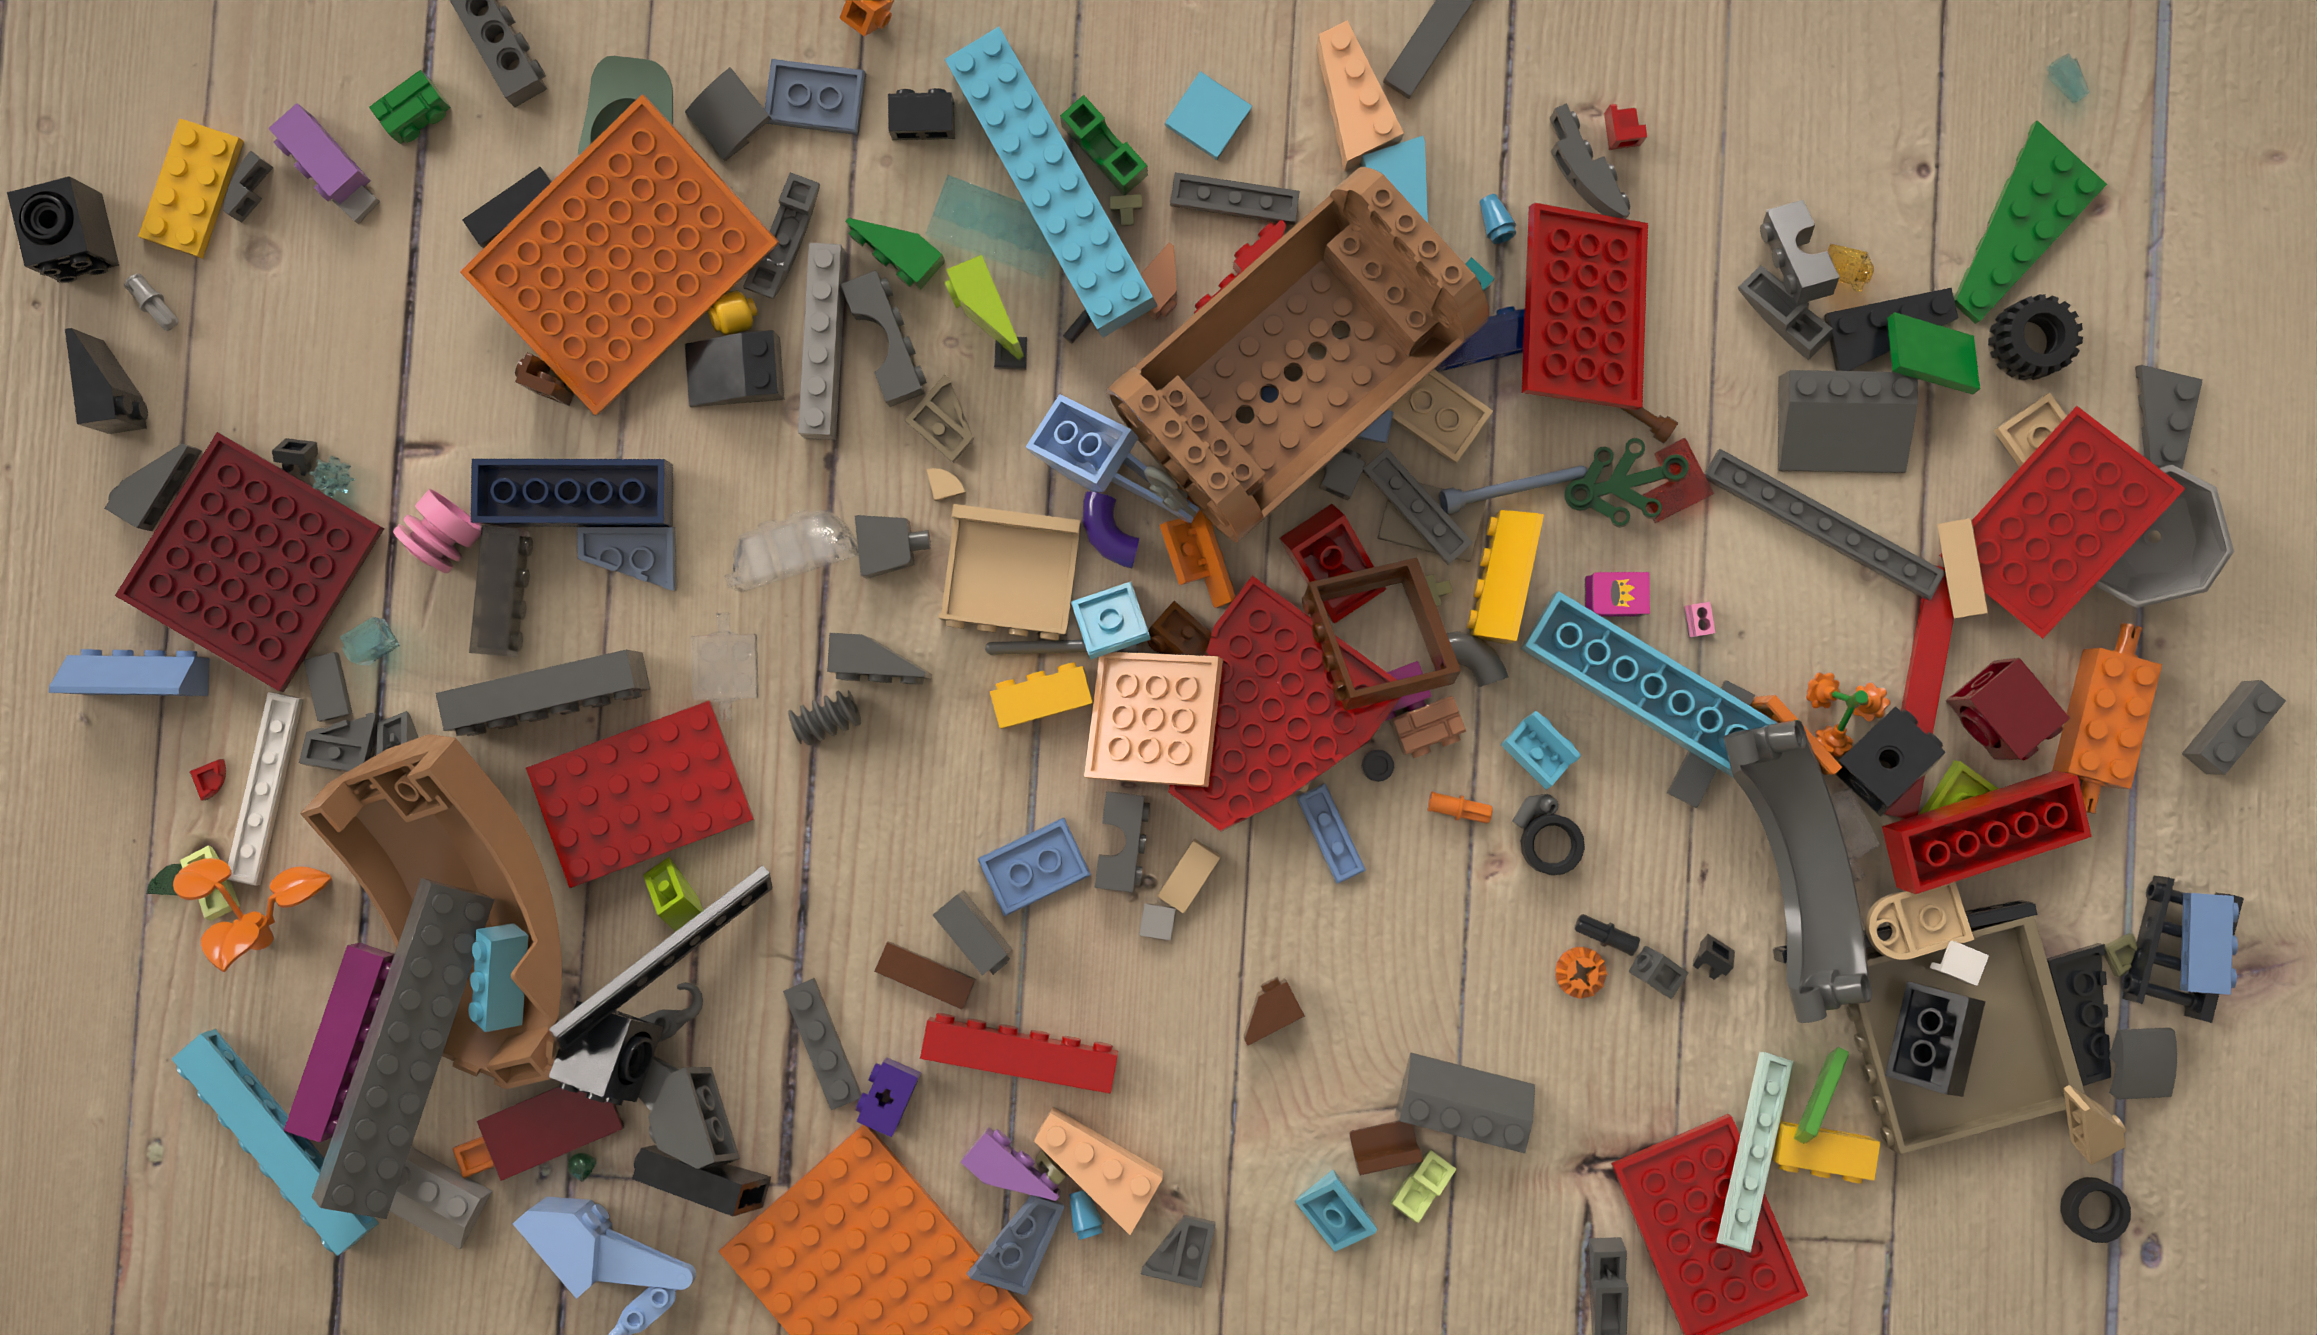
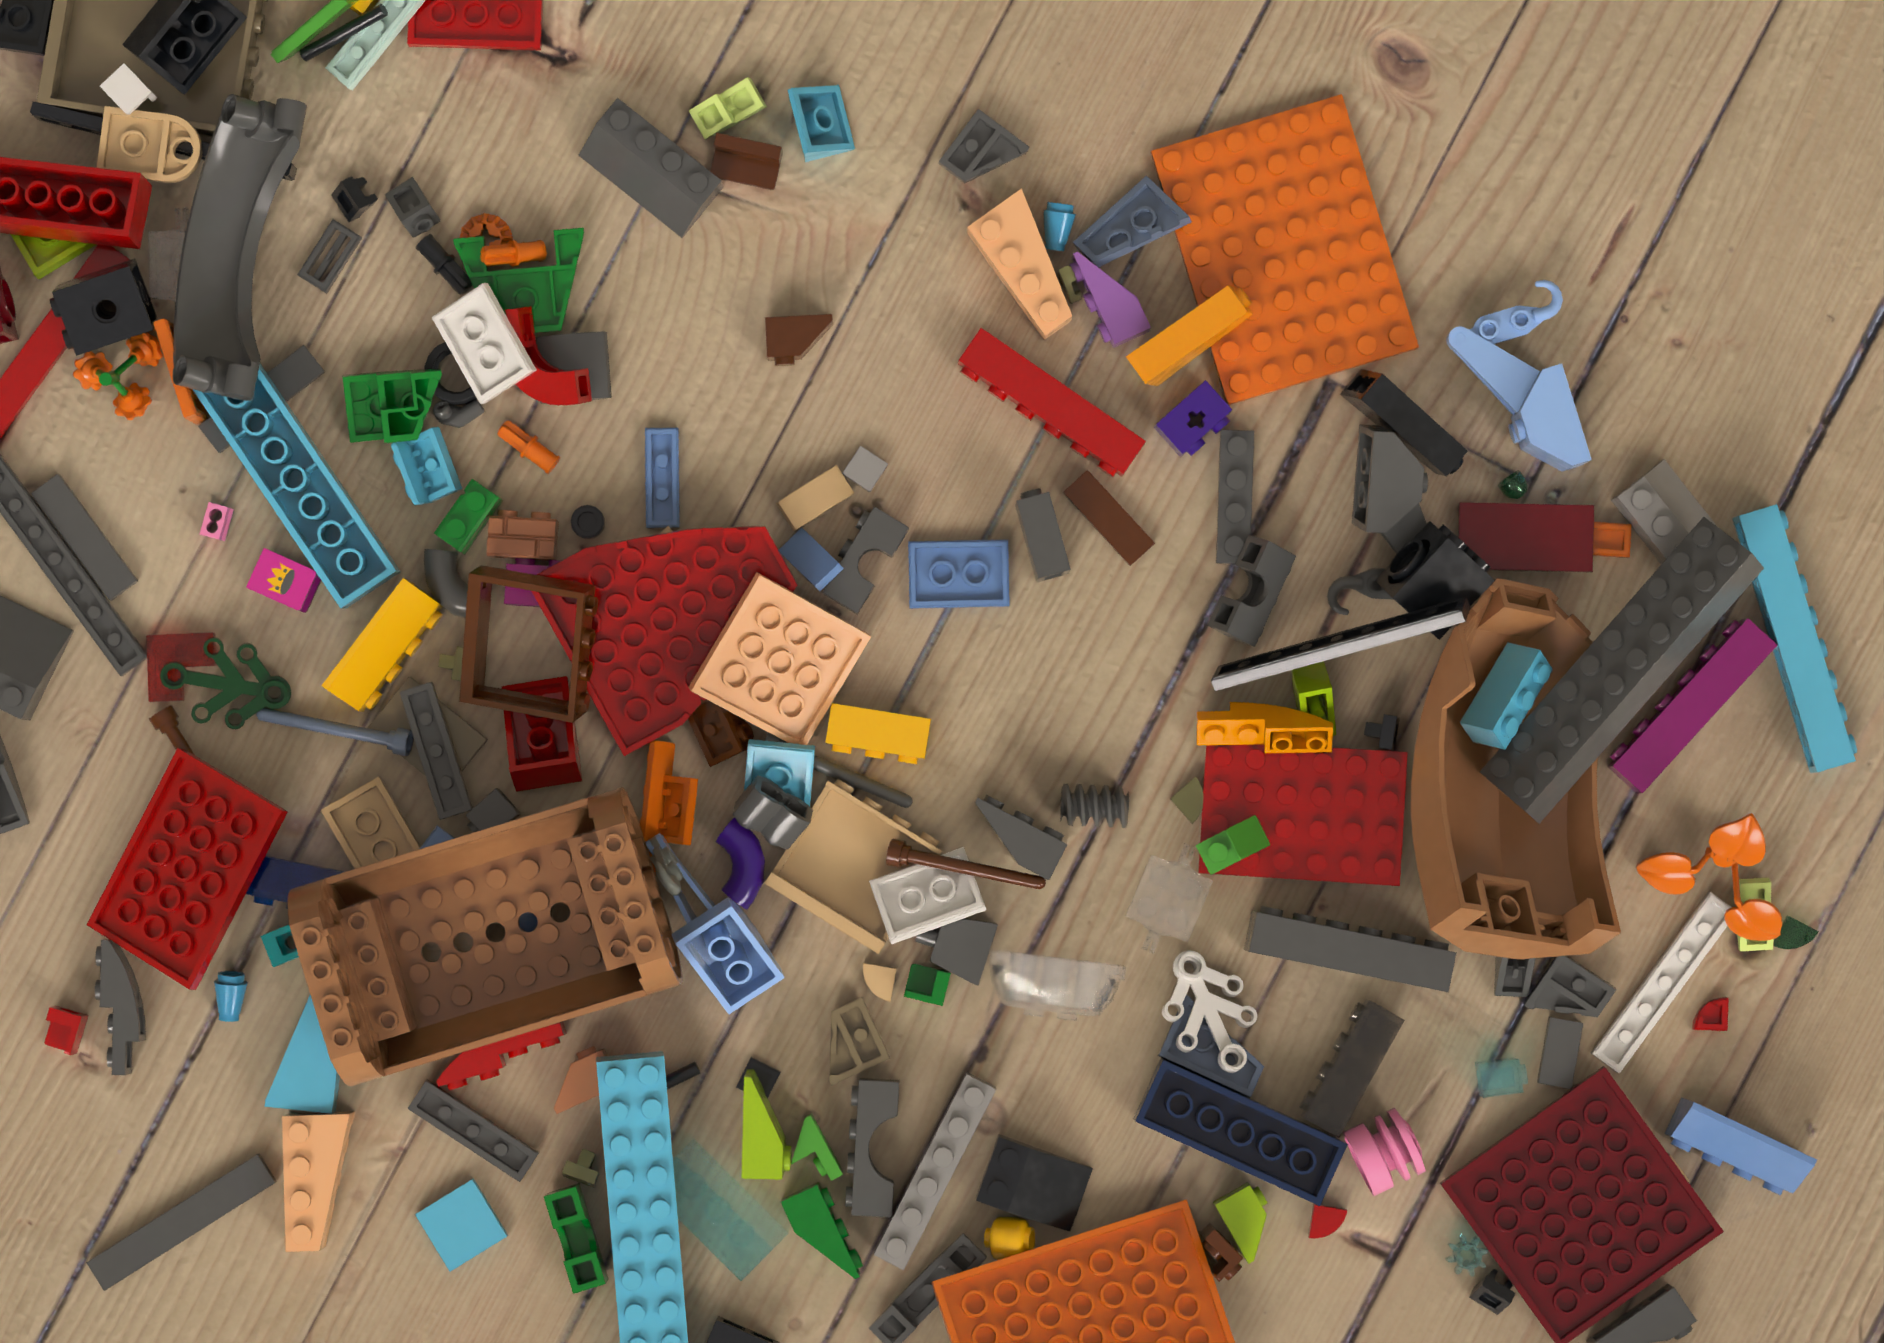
camera: 160 degrees left, 0 degrees up
(466, 449) = (1325, 1220): none -> red tile
(538, 422) = (1244, 1217): none -> lime slope
(598, 897) = (1385, 732): none -> black tile
(648, 588) = (1208, 1006): none -> white plant
(687, 737) = (1233, 845): none -> bright green slope
(700, 857) = (1272, 725): none -> light orange slope
(745, 760) = (1190, 800): none -> olive tile
(764, 991) = (1266, 570): none -> dark grey arch
(901, 497) = (927, 984): none -> green panel
(920, 1172) = (1190, 335): none -> light orange slope
(933, 573) = (925, 898): none -> white tile
(939, 319) = (812, 1140): none -> bright green slope
(971, 600) = (902, 854): none -> reddish brown piece
(1100, 584) = (772, 812): none -> dark grey brick
(1167, 820) = (810, 559): none -> medium blue tile
(1452, 895) = (579, 352): none -> dark grey slope
(1483, 722) = (468, 516): none -> green brick
(1486, 874) = (547, 383): none -> red arch
(1523, 937) = (542, 288): none -> green wing
(1541, 880) = (484, 343): none -> white tile
(1552, 972) = (513, 253): none -> orange axle
(1599, 789) = (388, 403): none -> green slope
(1698, 895) = (341, 262): none -> dark grey tile
(1792, 1100) = (343, 32): none -> black bar
(1807, 554) = (84, 537): none -> dark grey tile

